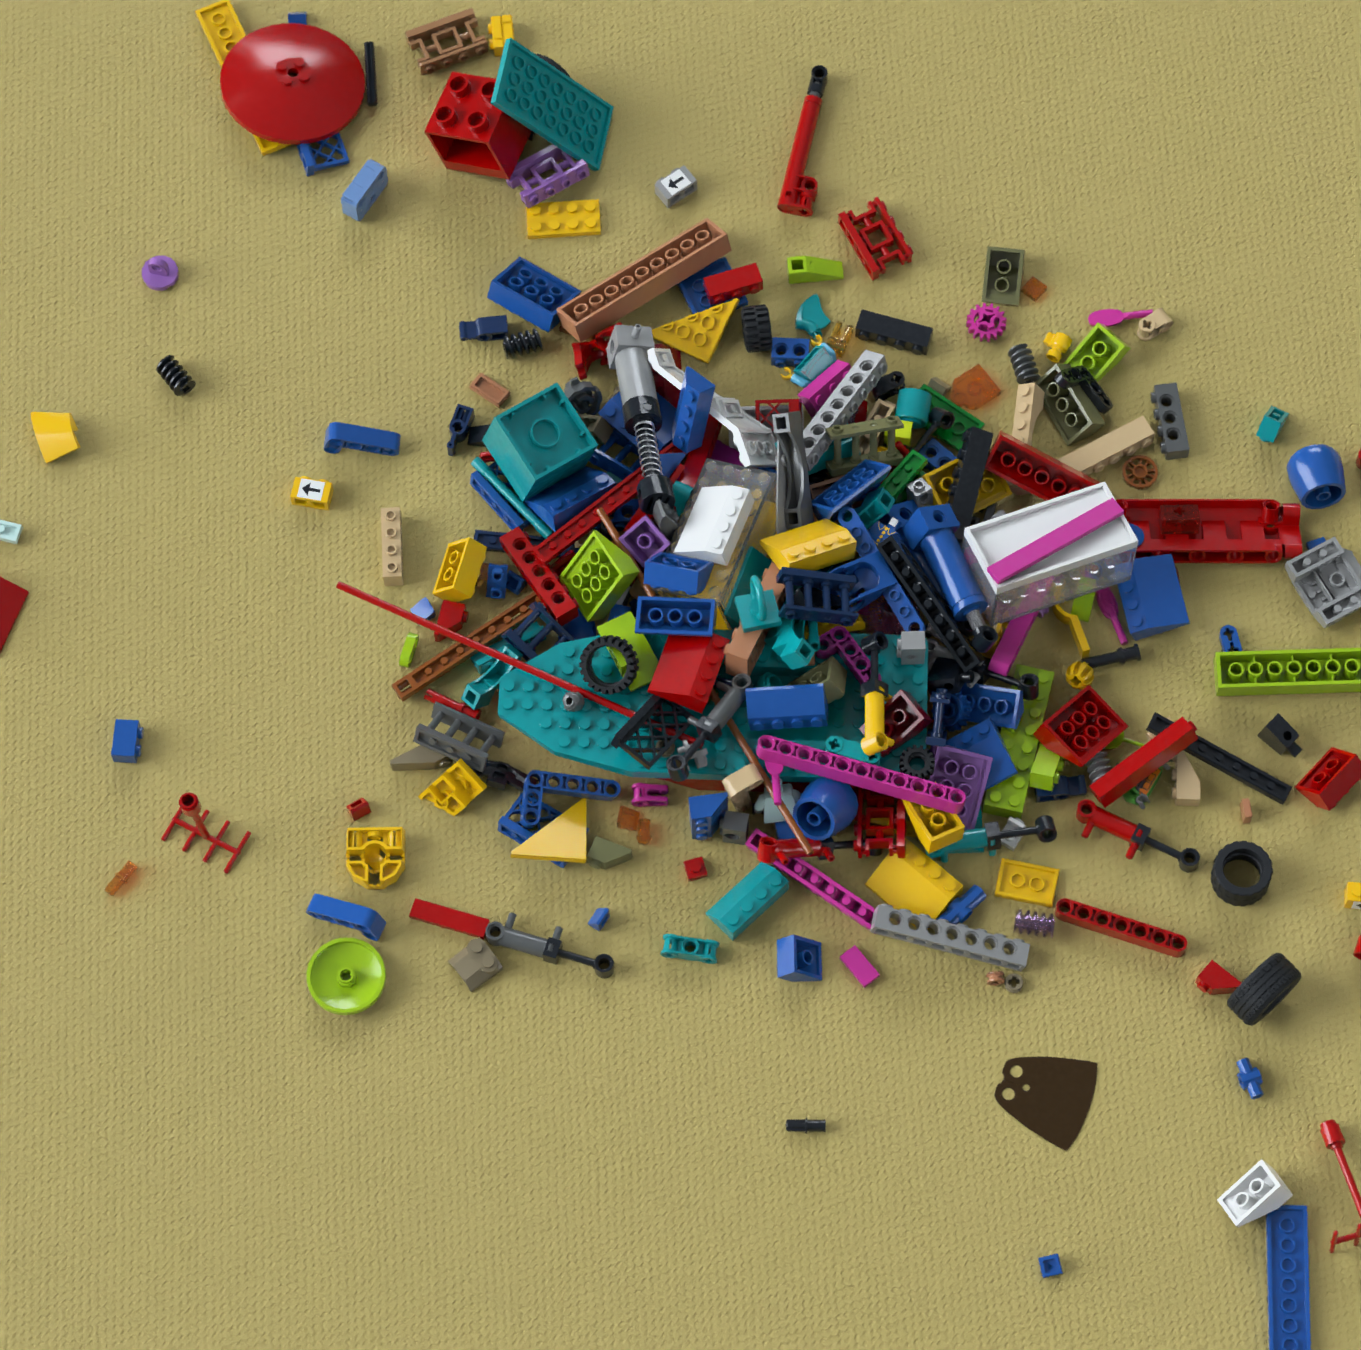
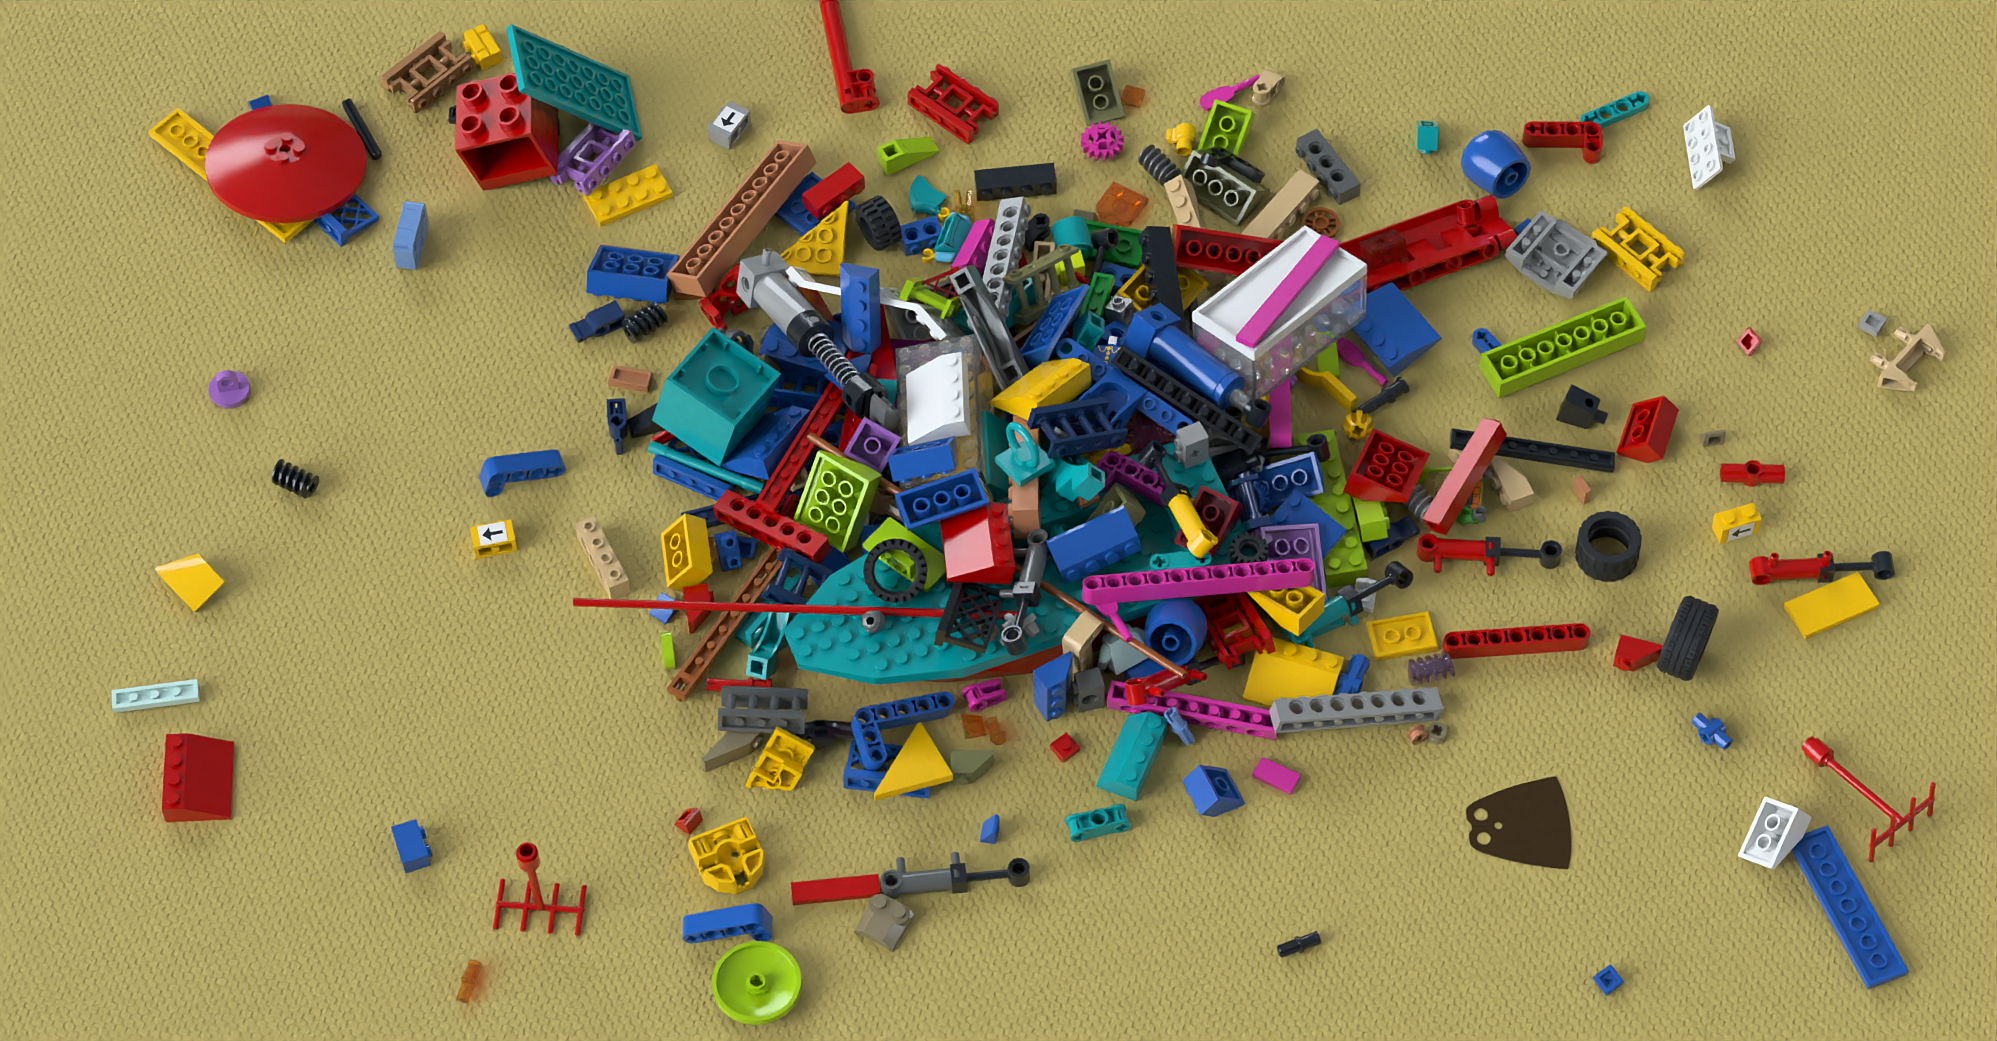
camera: 25 degrees left, 10 degrees down
(754, 419) = (915, 290): none -> lime fence
(795, 890) = (1179, 726): none -> medium blue axle

